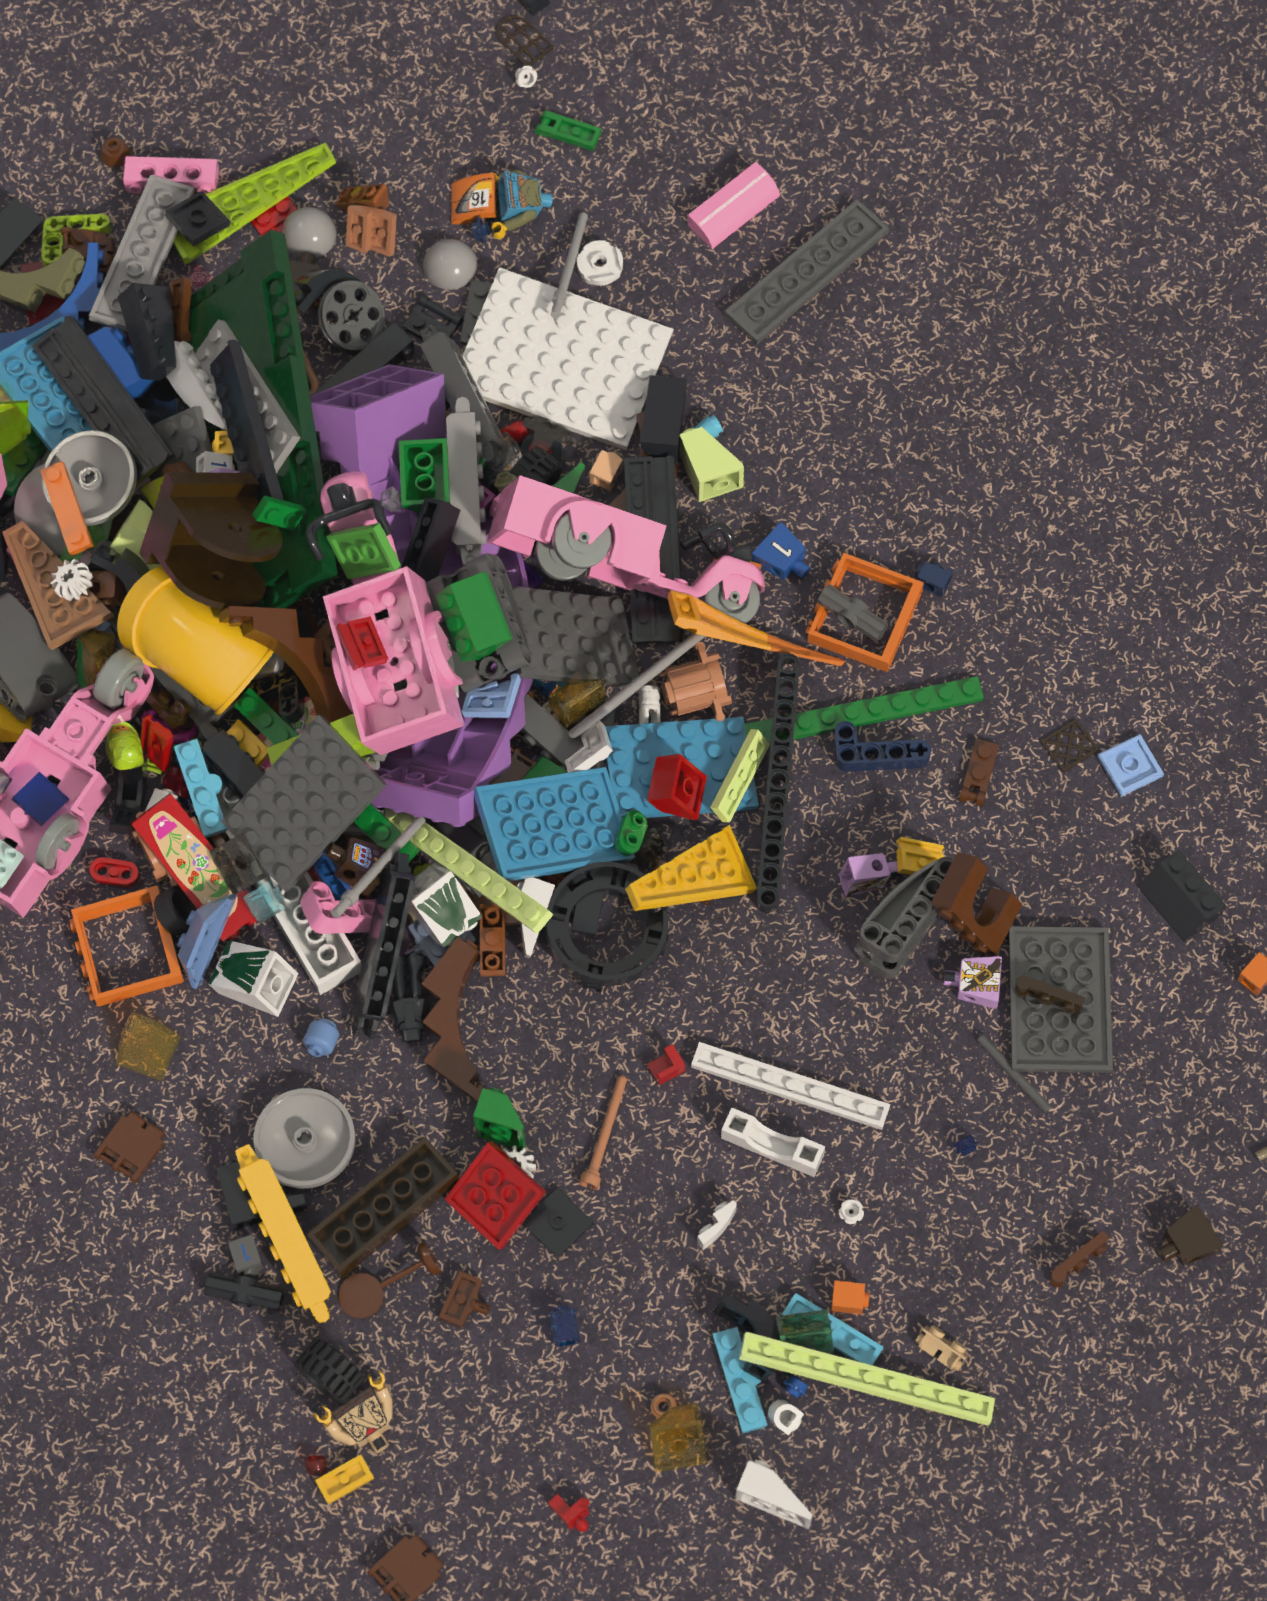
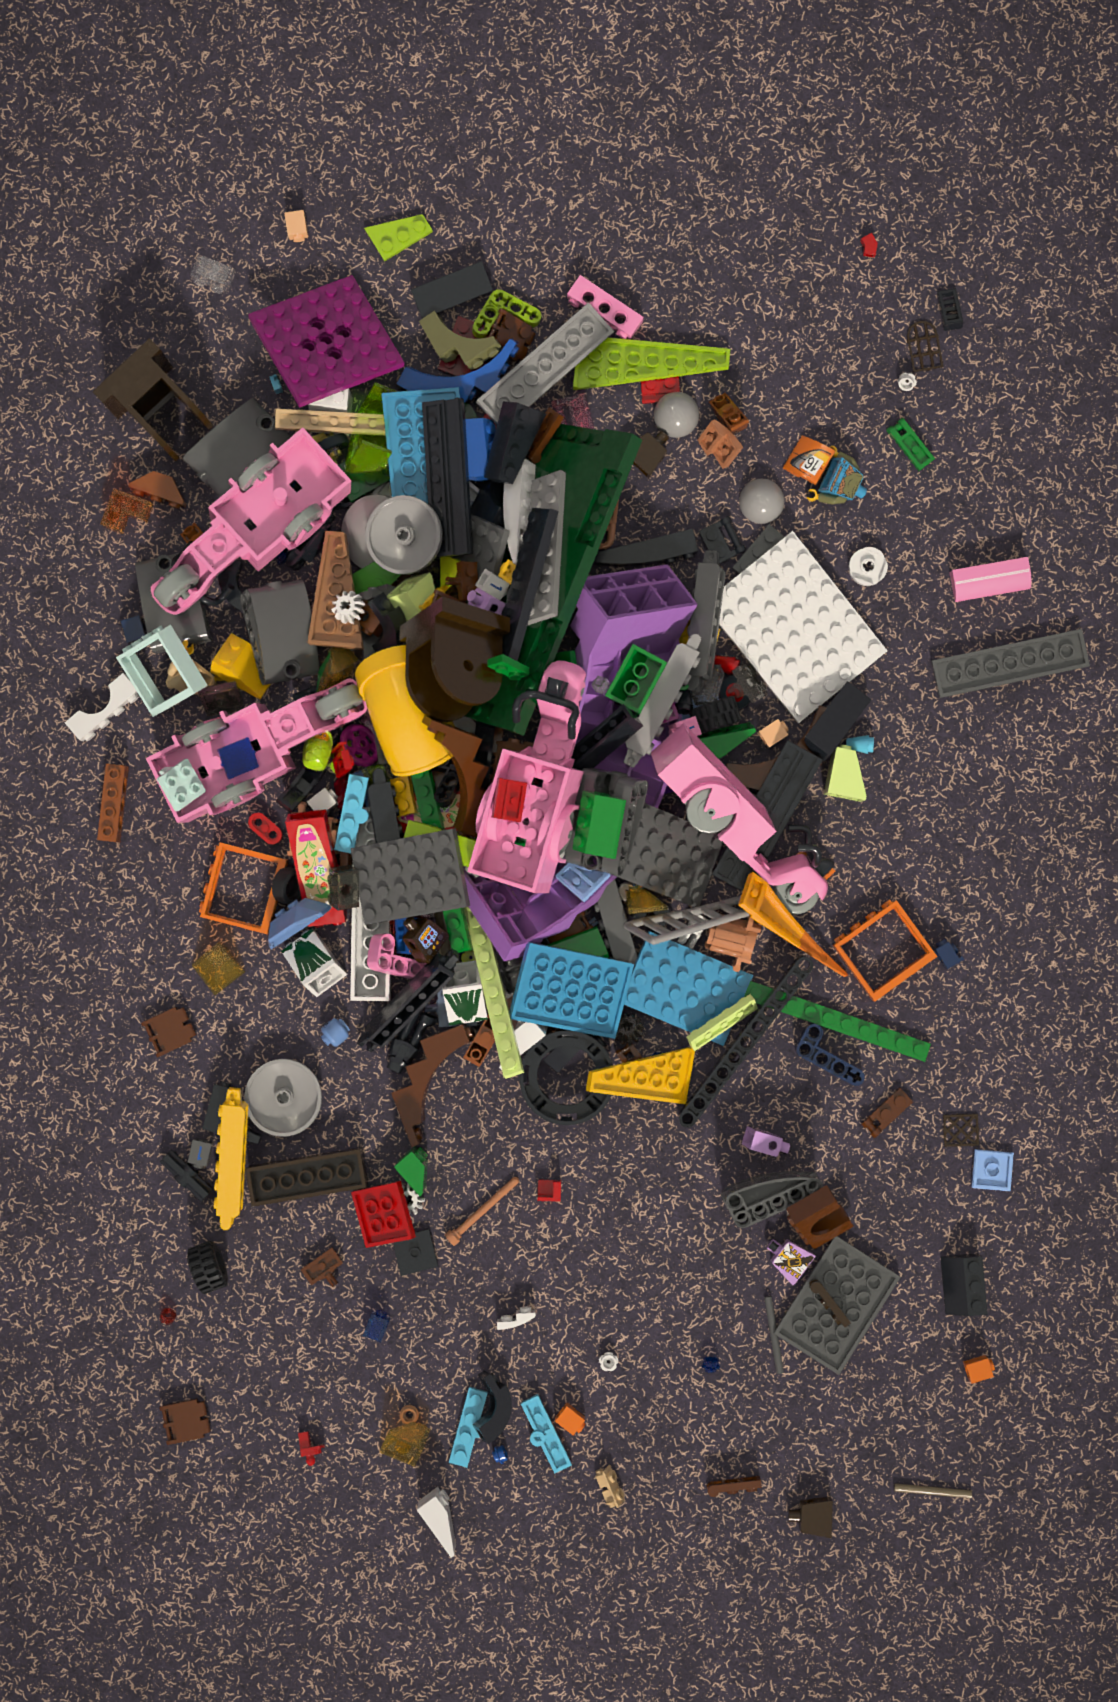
camera: 30 degrees right, 20 degrees up
(67, 508) = (374, 550): orange plate -> none
(114, 152) = (576, 262): reddish brown cone -> none
(172, 712) = (365, 737): dark brown hinge -> none
(197, 218) = (600, 361): black plate -> none
(265, 902) = (348, 922): clear light blue brick -> none
(318, 281) = (659, 468): black arch -> none
(342, 312) = (659, 501): dark grey wedge -> none
(344, 1479) = (179, 1338): yellow plate -> none
(351, 896) = (401, 968): light grey bar -> none
(362, 1417) = (212, 1307): torso -> none
(363, 551) = (549, 734): bright green plate -> none
(363, 1294) = (262, 1222): reddish brown piece -> none
(480, 229) = (799, 487): dark blue plate -> none
(504, 480) = (691, 715): olive plate -> none
(560, 295) = (821, 582): light grey bar -> none
(595, 749) = (630, 950): white plate -> none
(631, 828) = (622, 1020): green plate -> none
(676, 786) = (672, 1008): red slope -> none
(781, 554) = (855, 872): blue torso -> none
(785, 1416) = (481, 1470): white plate -> none
(790, 1085) = (622, 1254): white plate -> none
(791, 1151) = (586, 1288): white arch -> none
(806, 1330) = (524, 1431): clear green bracket -> none
(852, 613) = (873, 952): dark grey piece -> none
(867, 1378) = (546, 1483): yellowish green plate -> none
(916, 854) = (806, 1152): yellow plate -> none

